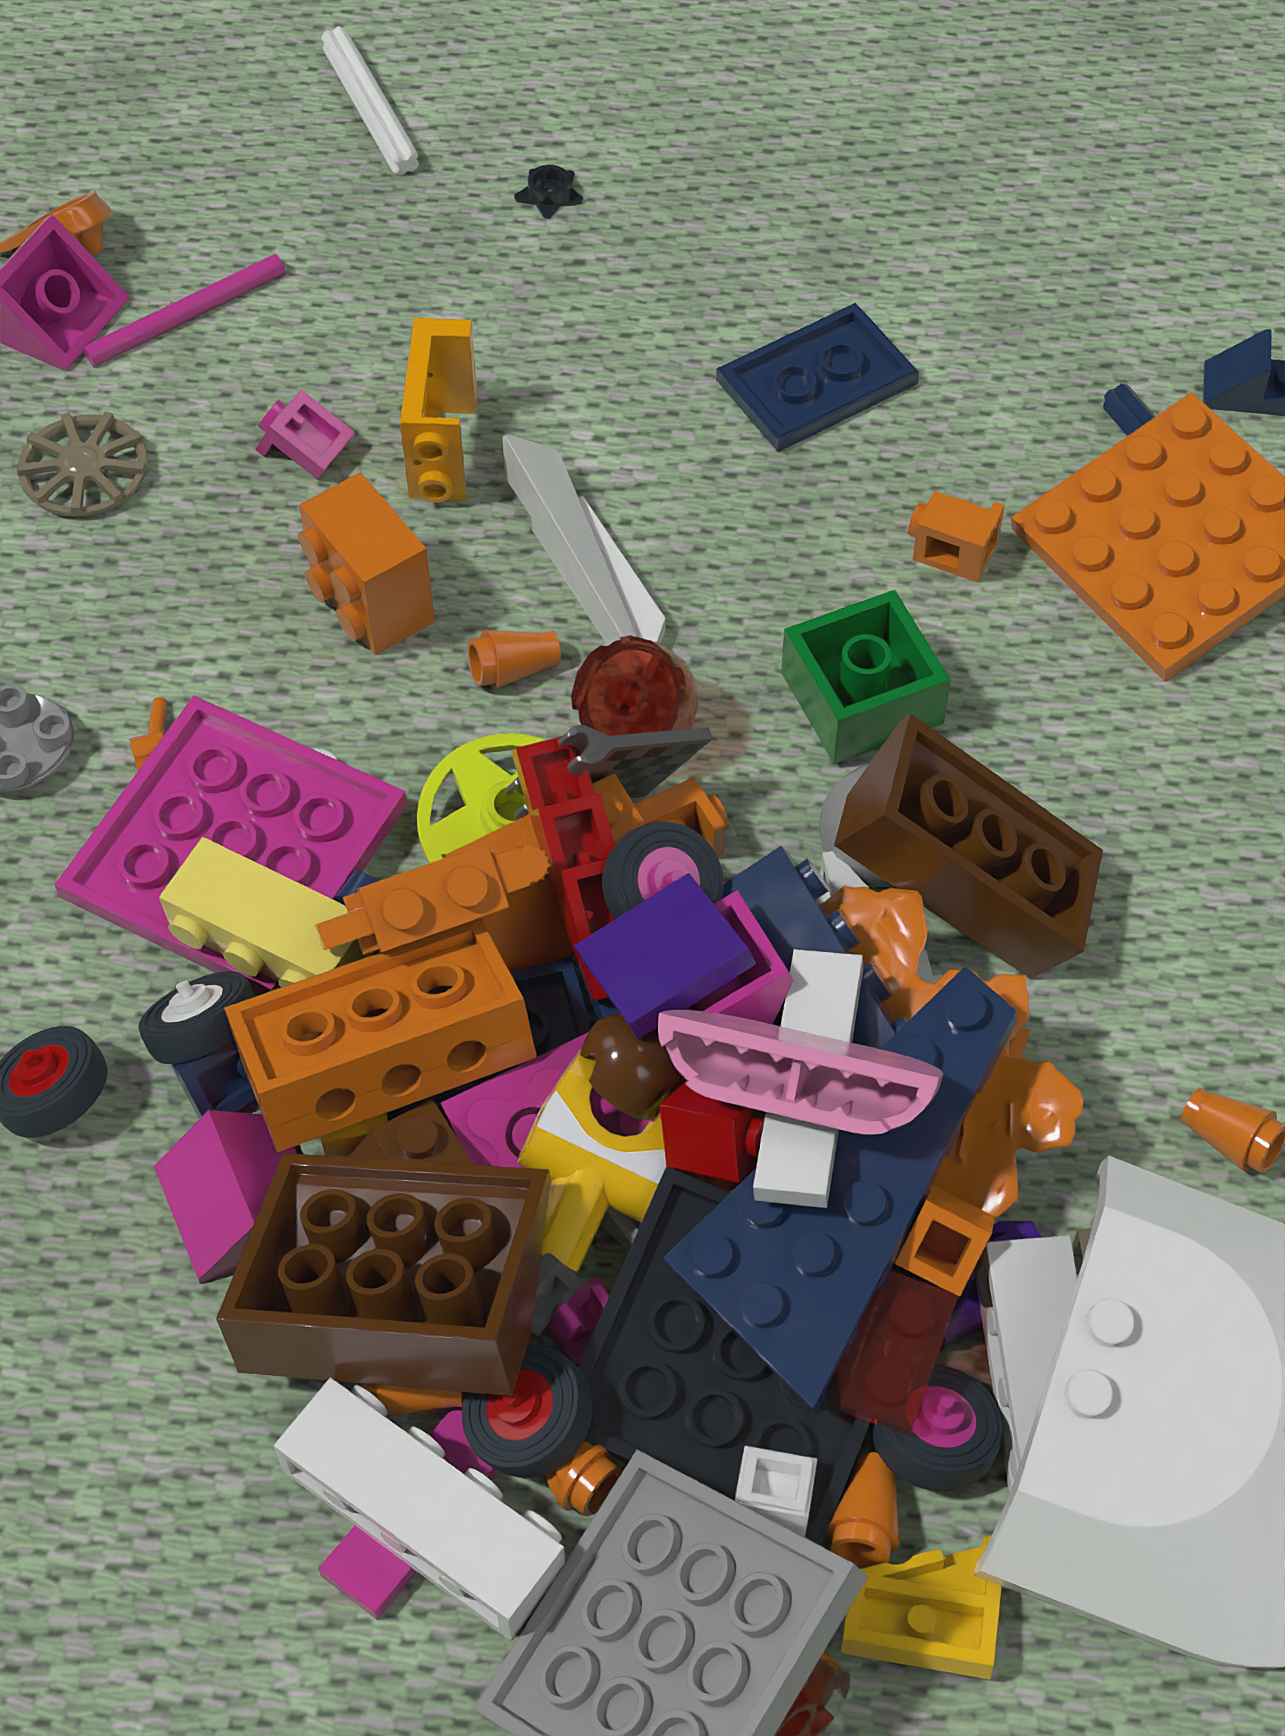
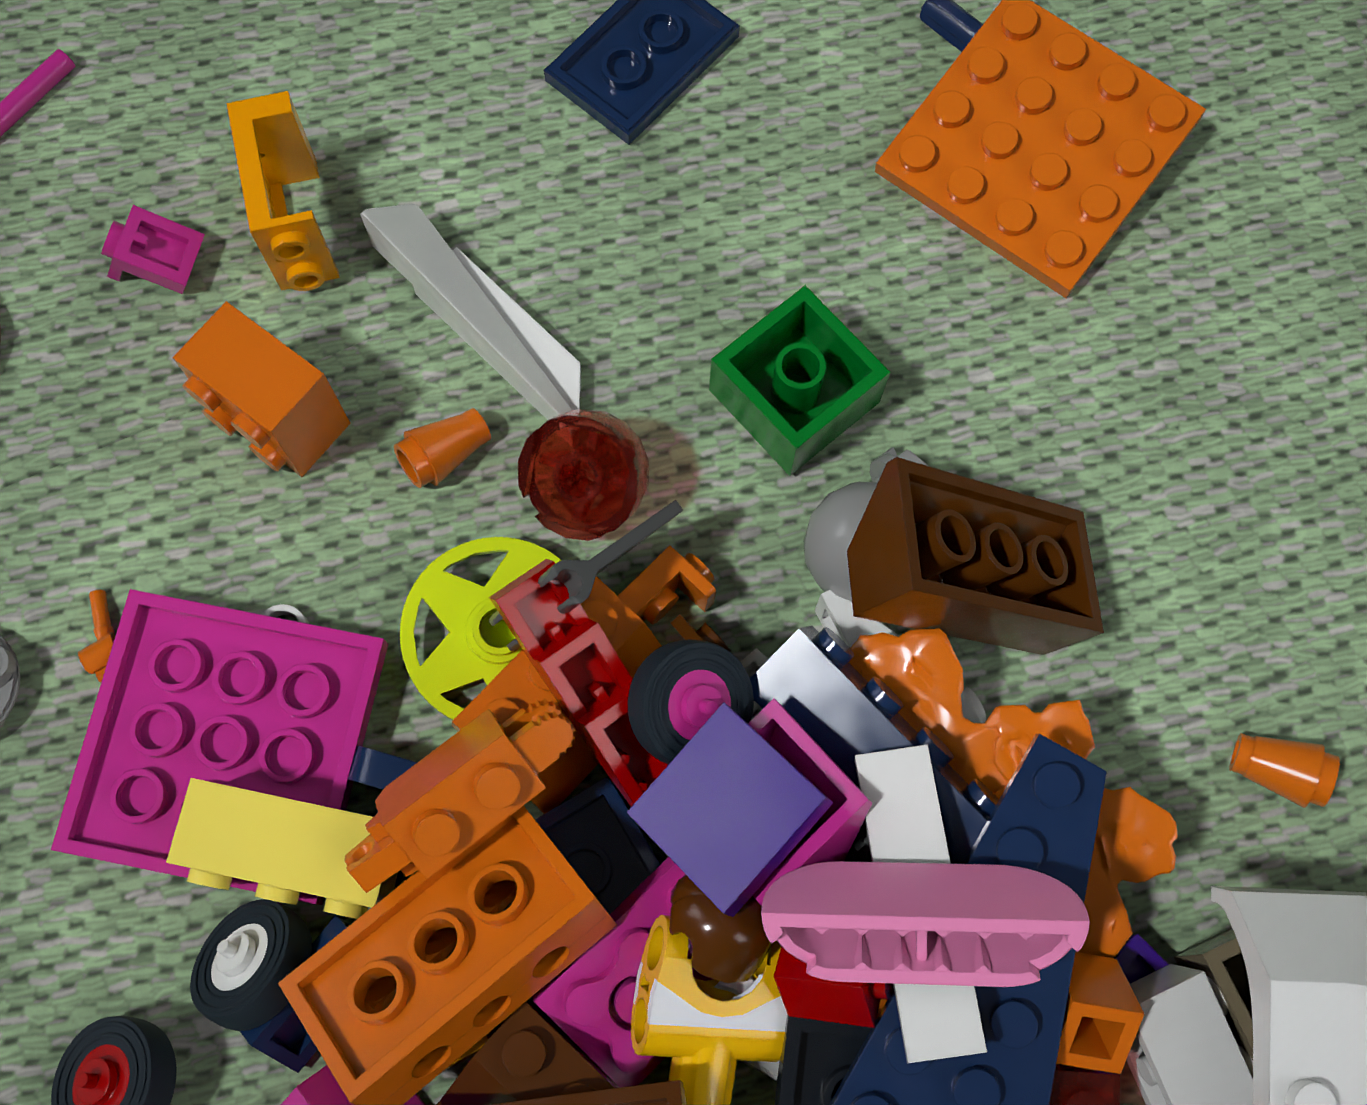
camera: 20 degrees left, 15 degrees up
(955, 534) = (831, 196): orange brick -> none

